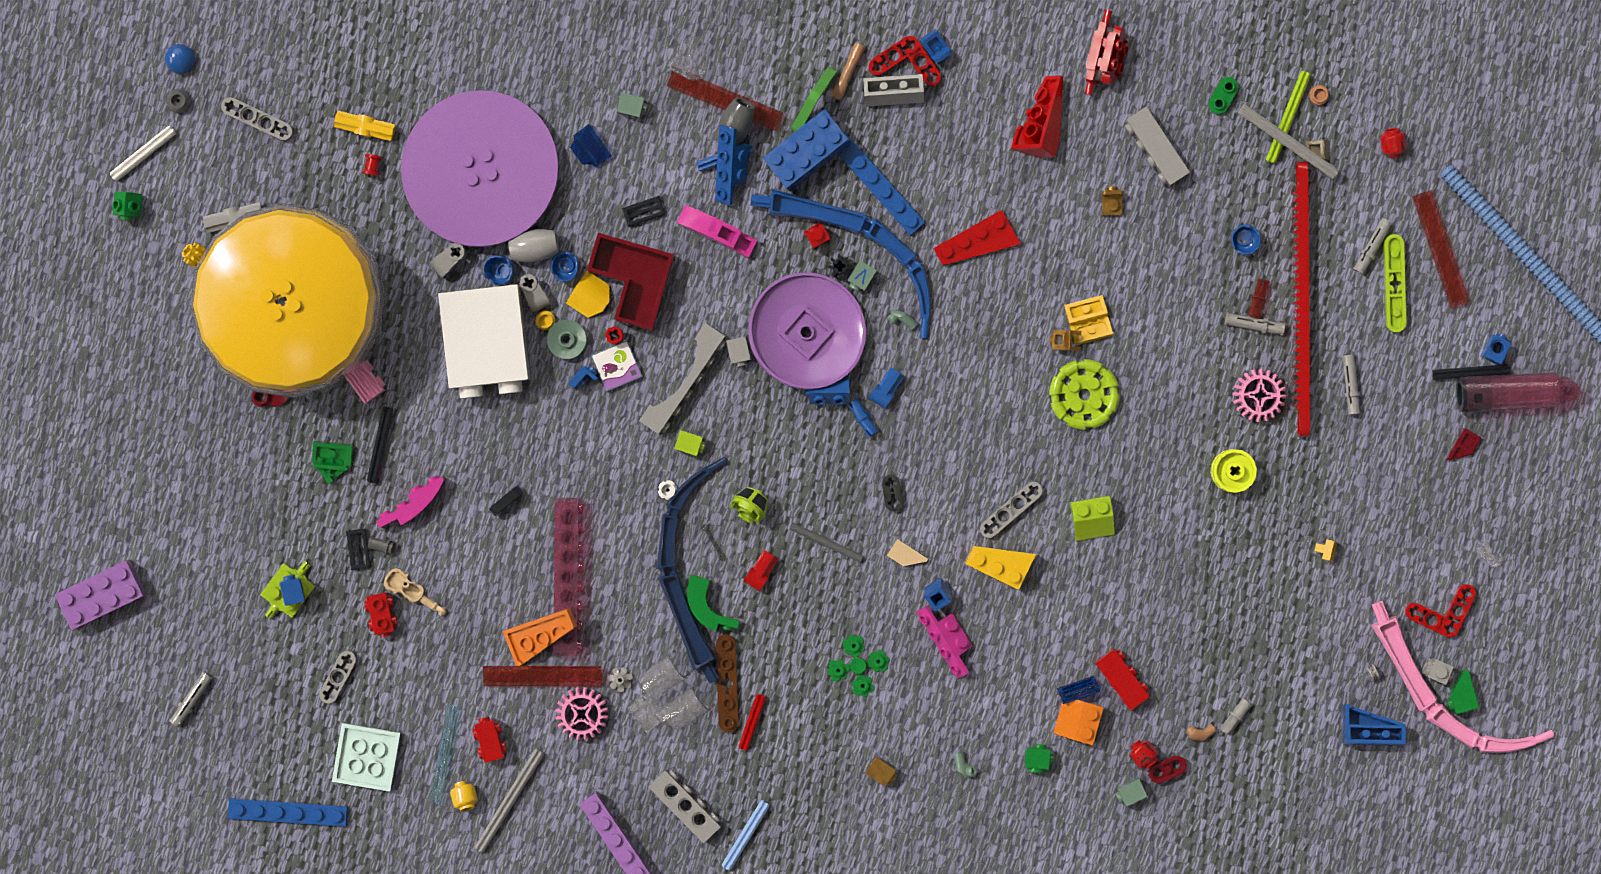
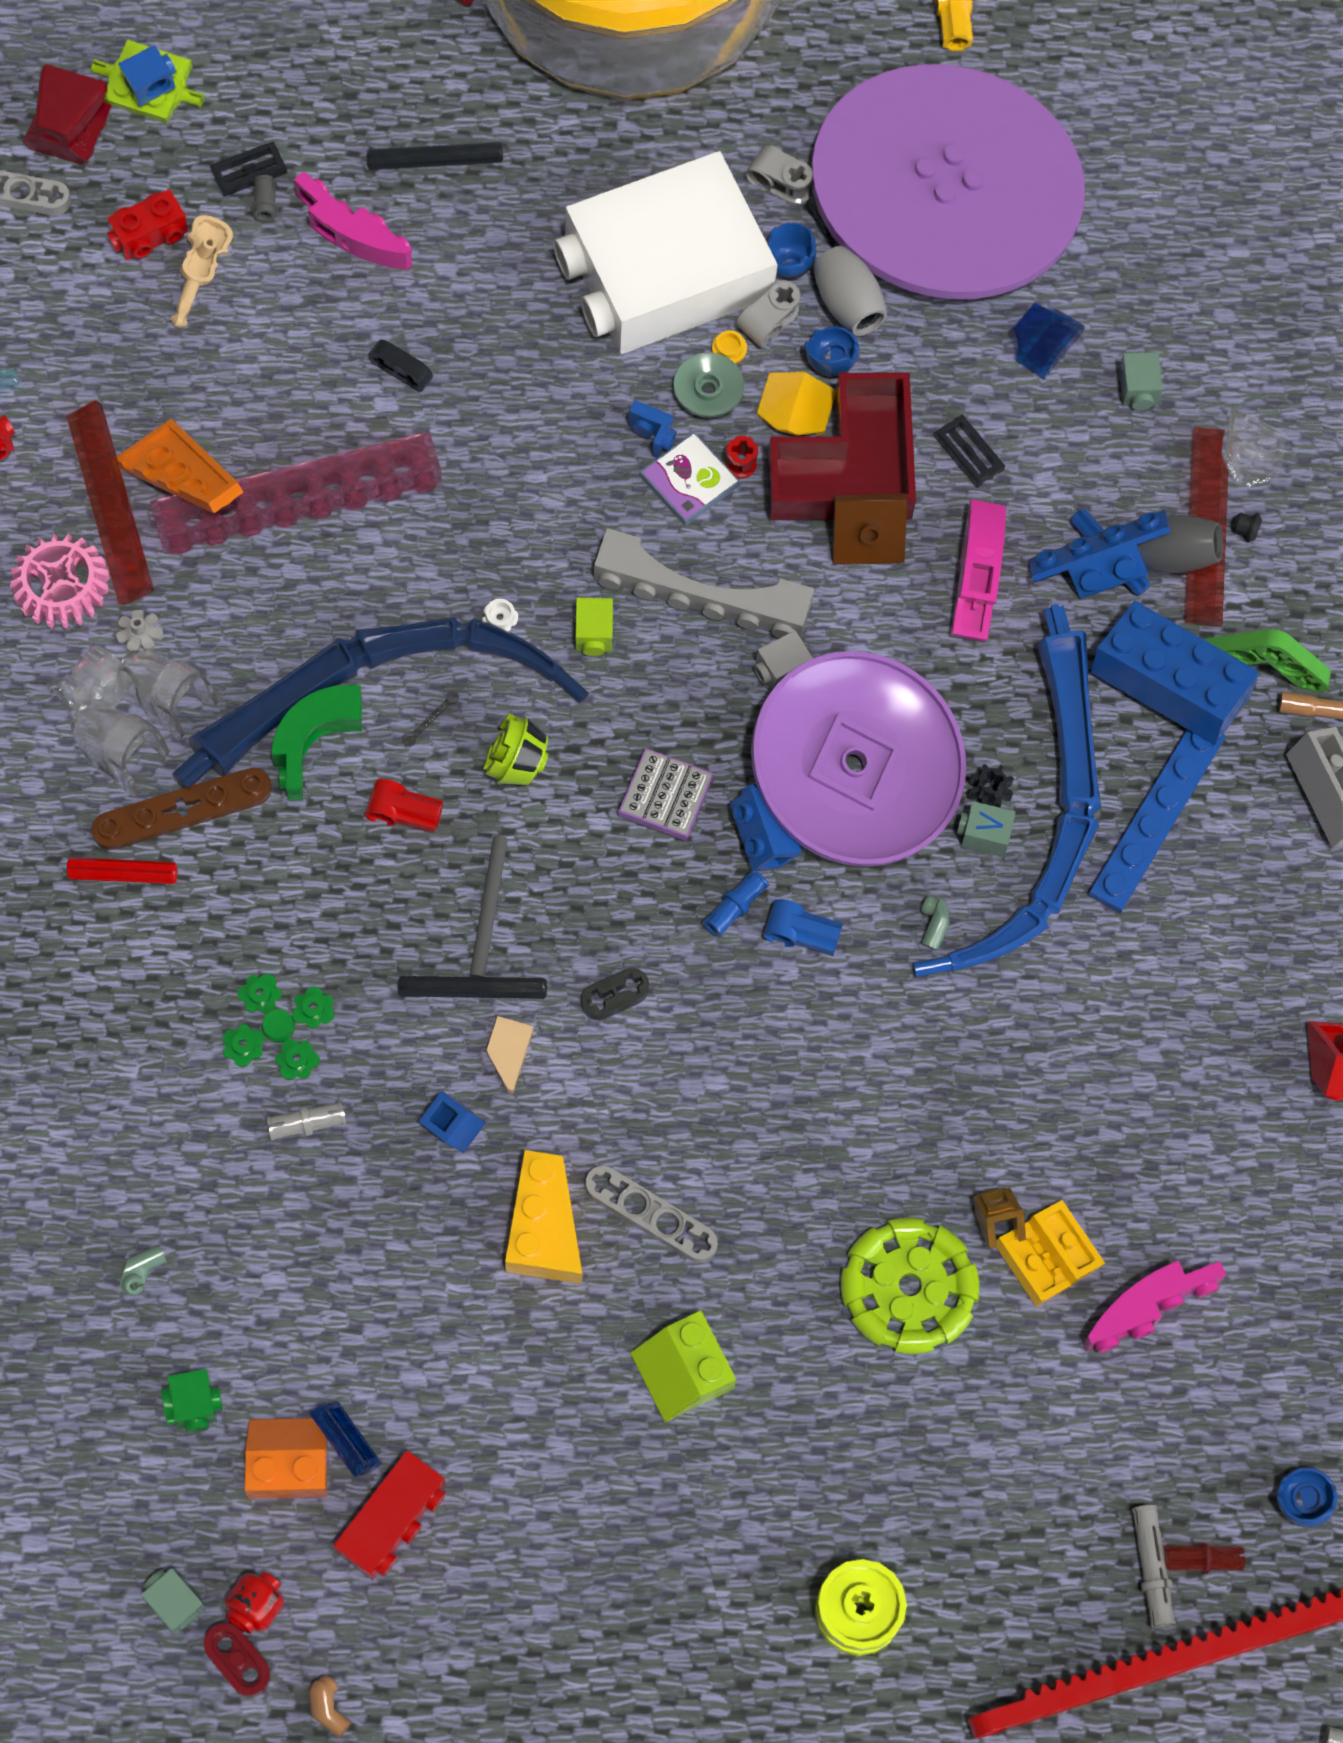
camera: 60 degrees right, 20 degrees down
(301, 640) = (67, 115): none -> dark red piece
(331, 458) = (388, 91): green slope -> none
(366, 383) = (534, 103): bright pink brick -> none
(372, 165) = (894, 26): red bush -> none
(679, 282) = (869, 528): none -> reddish brown plate
(731, 78) = (1247, 525): none -> black piece
(793, 434) = (666, 794): none -> tile
(817, 235) = (1034, 730): red brick -> none
(867, 563) = (472, 987): none -> black axle
(881, 771) = (89, 1118): pearl gold brick -> none
(912, 665) = (306, 1120): none -> light grey pin
(948, 638) = (377, 1169): dark pink bracket -> none
(982, 238) = (1132, 1022): red wing -> none
(1112, 201) = (1283, 1229): pearl gold bracket -> none
(1130, 288) = (1138, 1308): none -> dark pink slope
(1259, 404) = (1026, 1635): bright pink gear -> none

